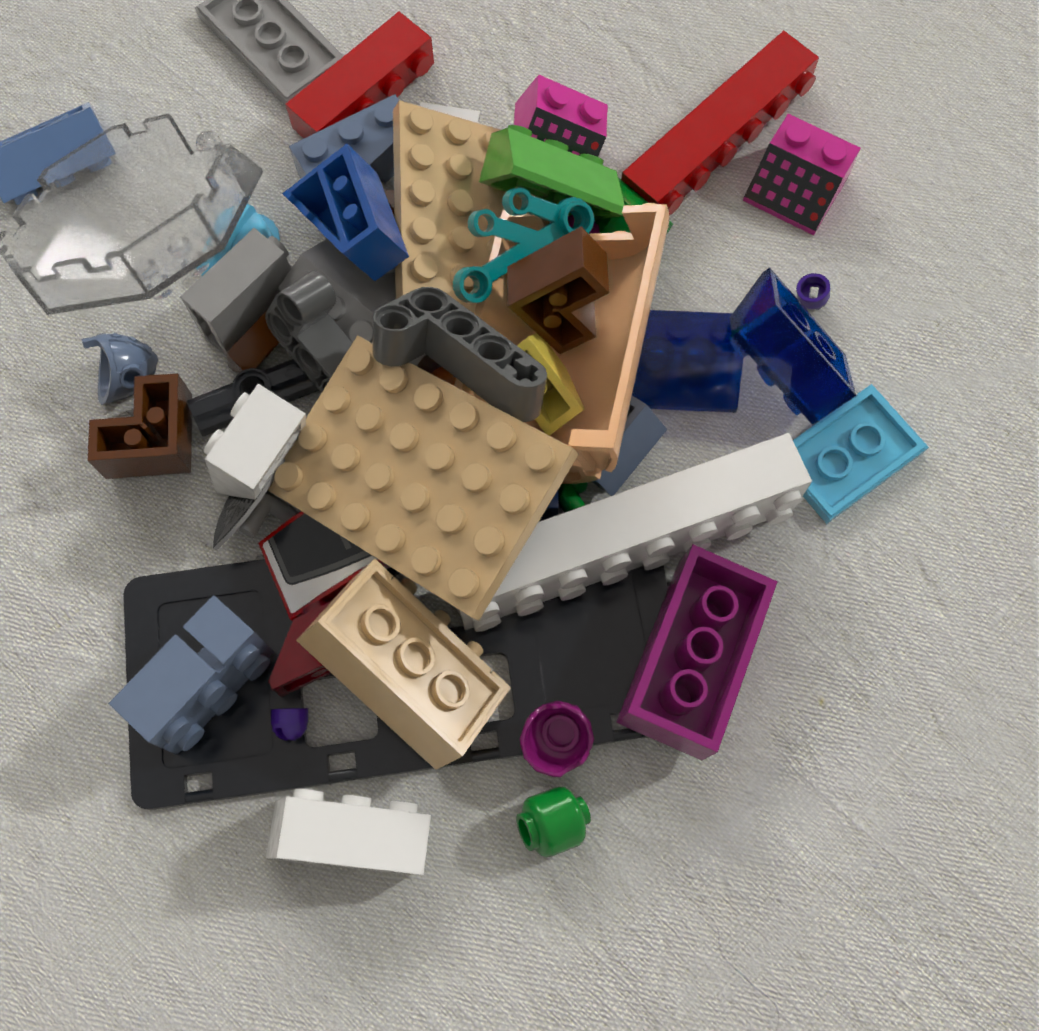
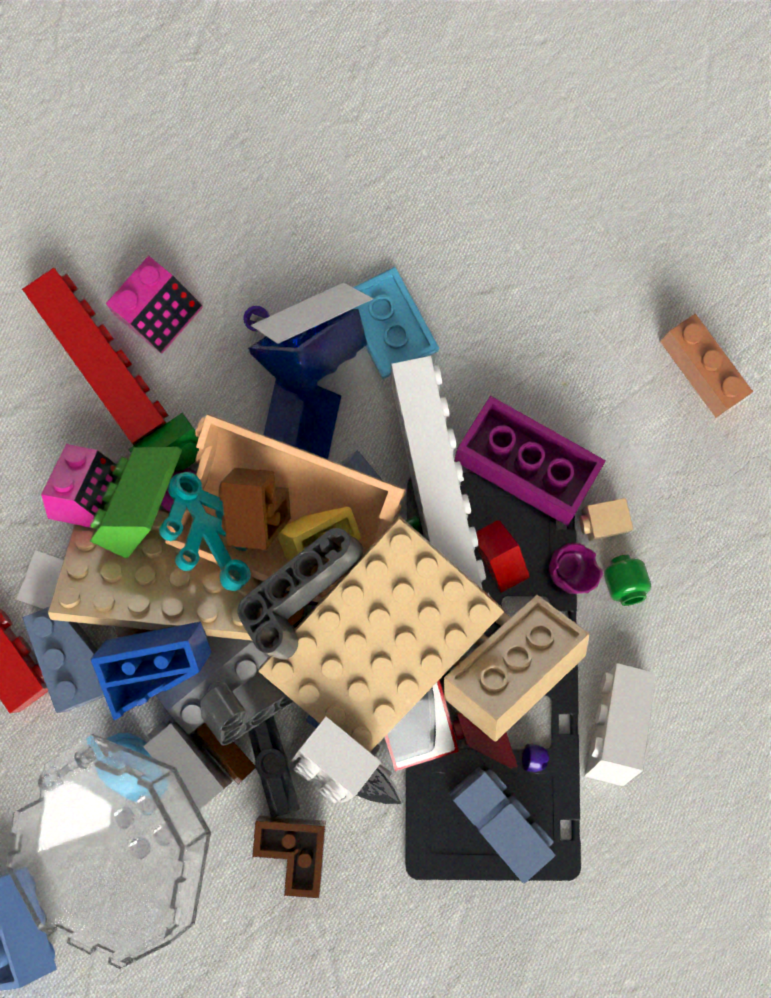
camera: 90 degrees left, 10 degrees up
(119, 363) = (231, 871): sand blue helmet -> none
(558, 638) = (501, 556): none -> red slope
(635, 778) = (606, 519): none -> tan brick
(837, 343) = (311, 312): none -> white sticker
(898, 902) = (705, 365): none -> nougat brick

